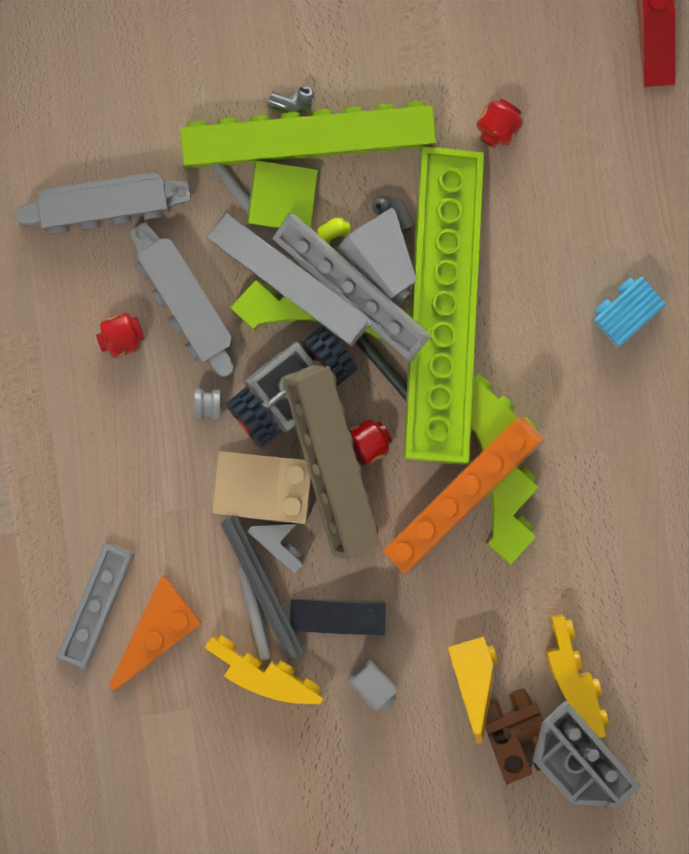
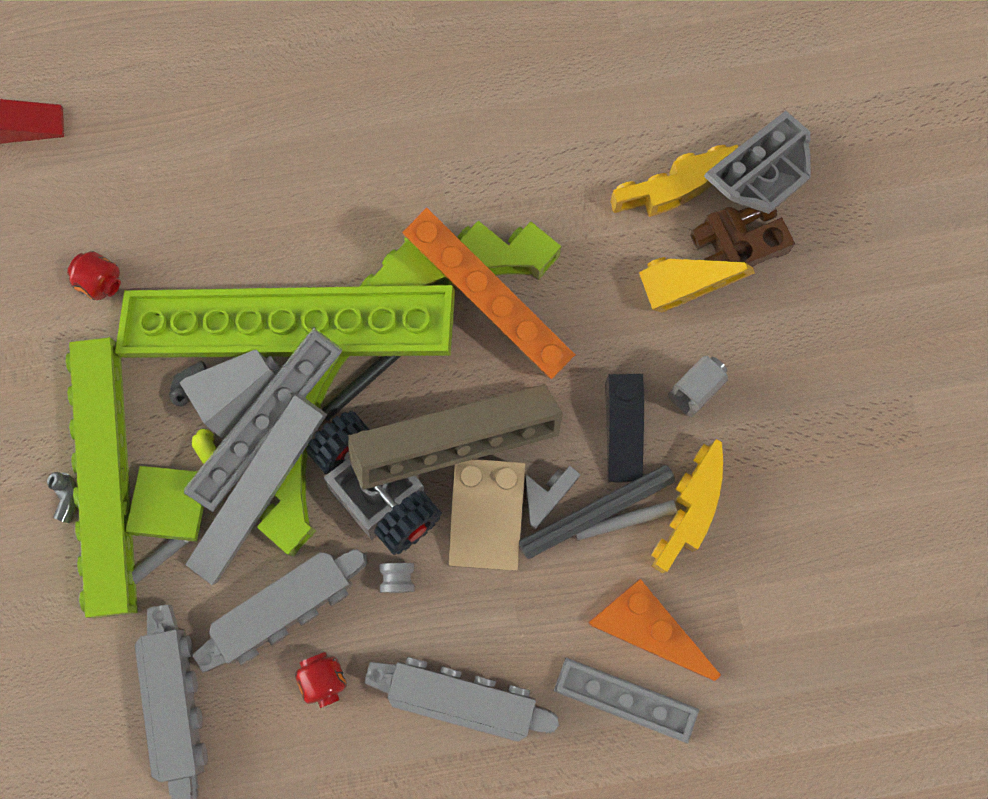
camera: 90 degrees left, 10 degrees down
(98, 459) = (460, 701): none -> light grey hinge
(370, 441) = (433, 396): red head -> none
(628, 311) = (293, 140): medium azure brick -> none

